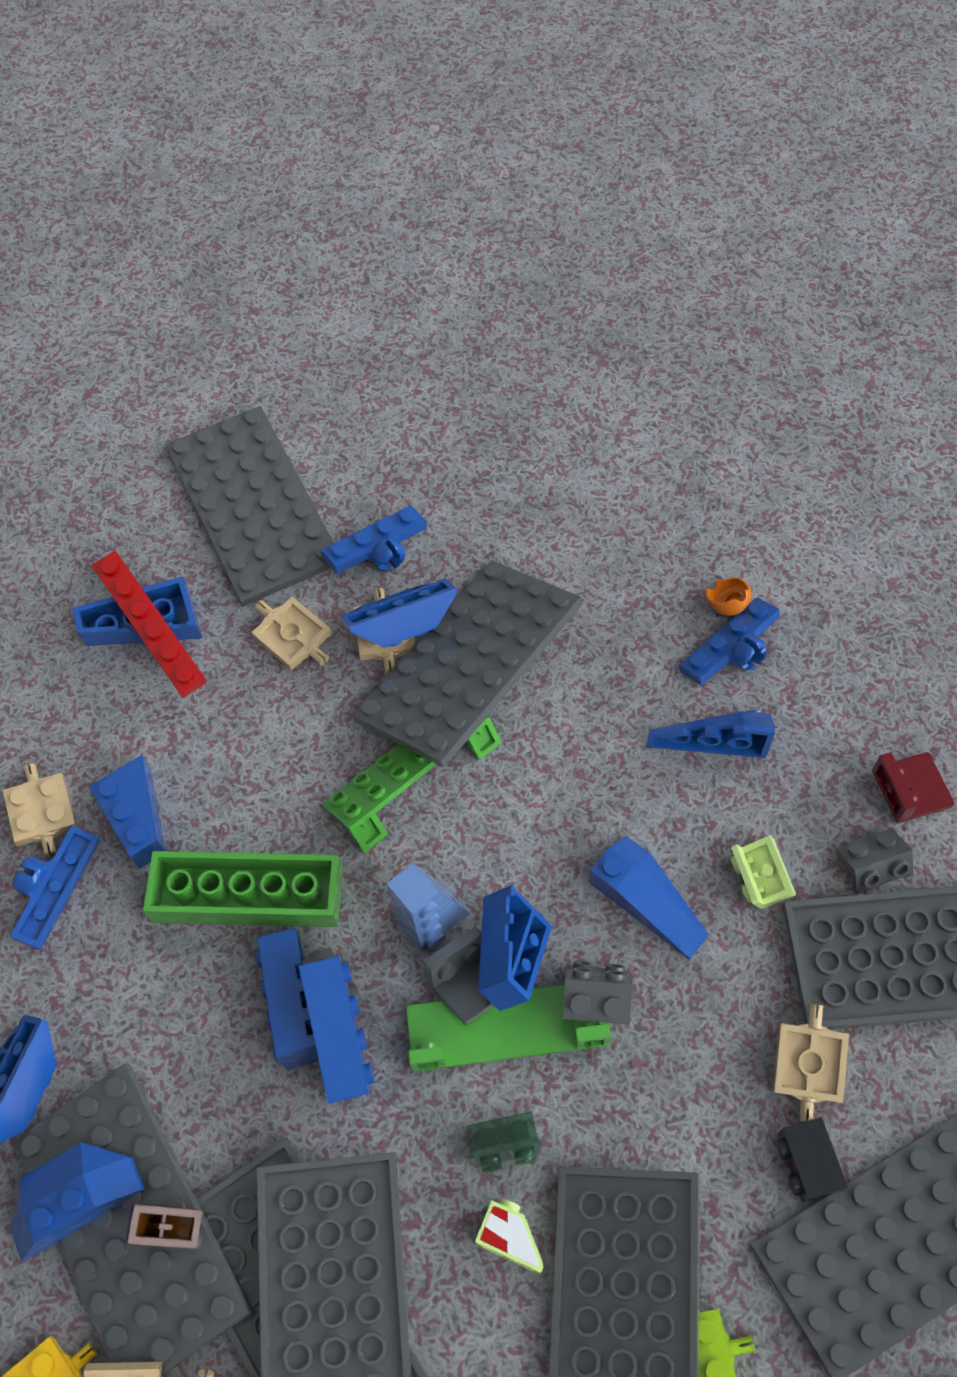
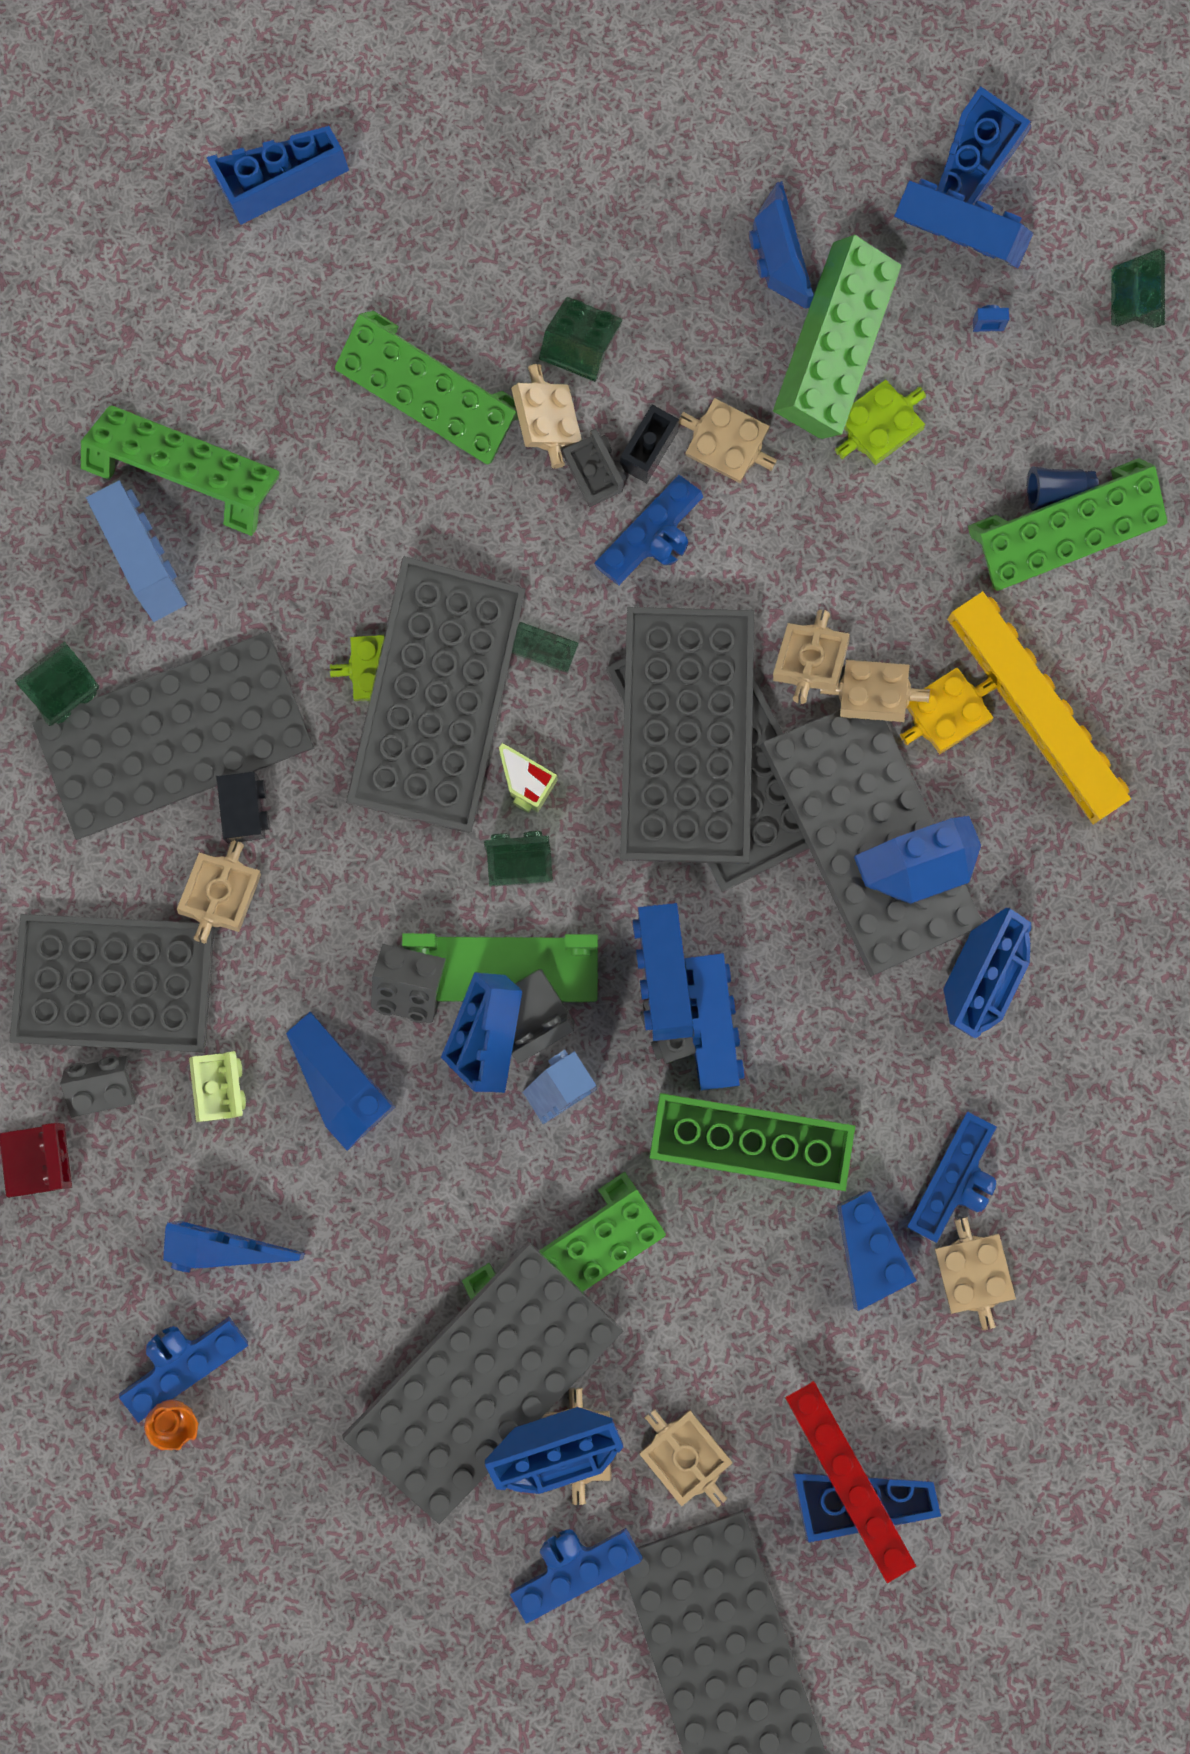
camera: 175 degrees left, 20 degrees up
(163, 1226) = (832, 817): slope -> none

